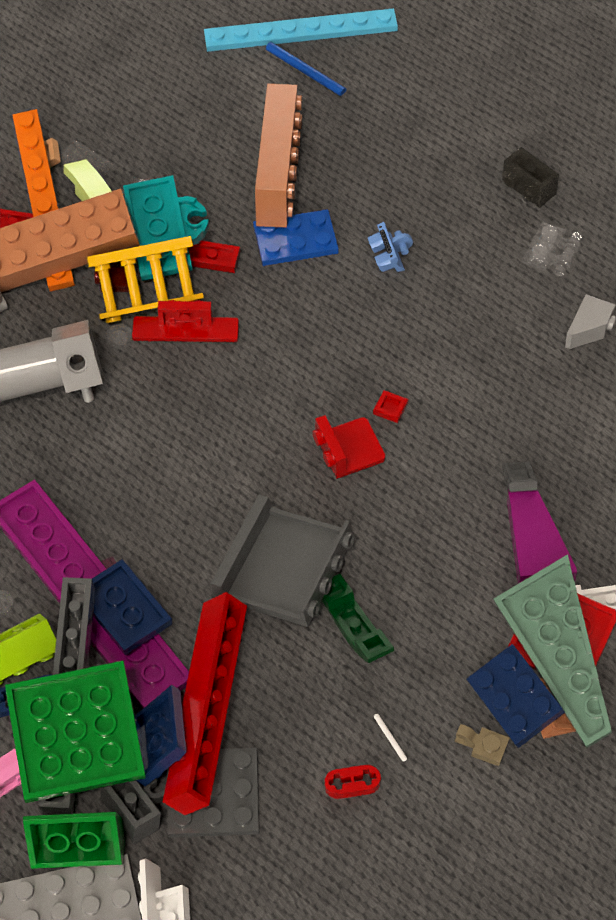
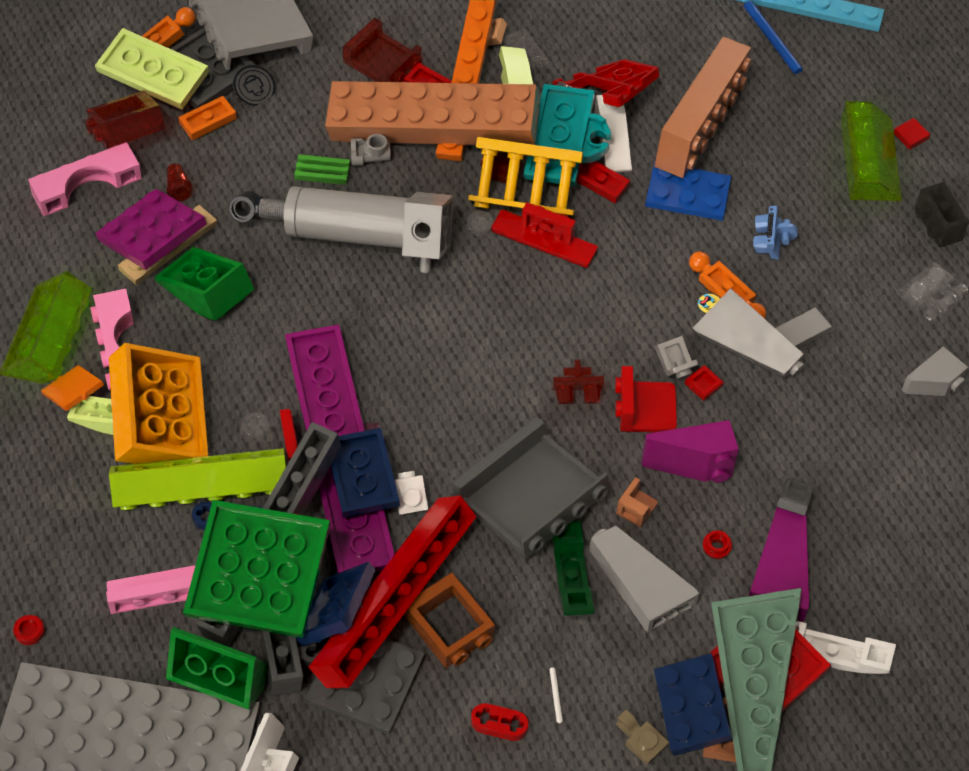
camera: 20 degrees right, 0 degrees up
(38, 601) = (288, 432): none -> red tile
(176, 606) = (411, 492): none -> white bracket
(187, 153) = (620, 80): none -> red wing
(195, 186) = (618, 155): none -> white slope
(242, 692) = (434, 597): none -> dark orange window
(269, 457) = (589, 384): none -> clear red hips
(356, 393) = (675, 357): none -> light grey bracket
(363, 335) = (706, 302): none -> tile
(371, 312) = (720, 279): none -> orange plate
(382, 539) = (636, 505): none -> nougat panel
(413, 348) = (746, 333): none -> light grey slope
(414, 471) = (693, 452): none -> magenta slope
(418, 603) = (641, 579): none -> light grey slope
(440, 144) = (869, 153): none -> clear neon green slope
(454, 327) = (805, 328): none -> light grey tile
(469, 113) = (911, 133): none -> red tile
(469, 539) = (720, 537): none -> red plate

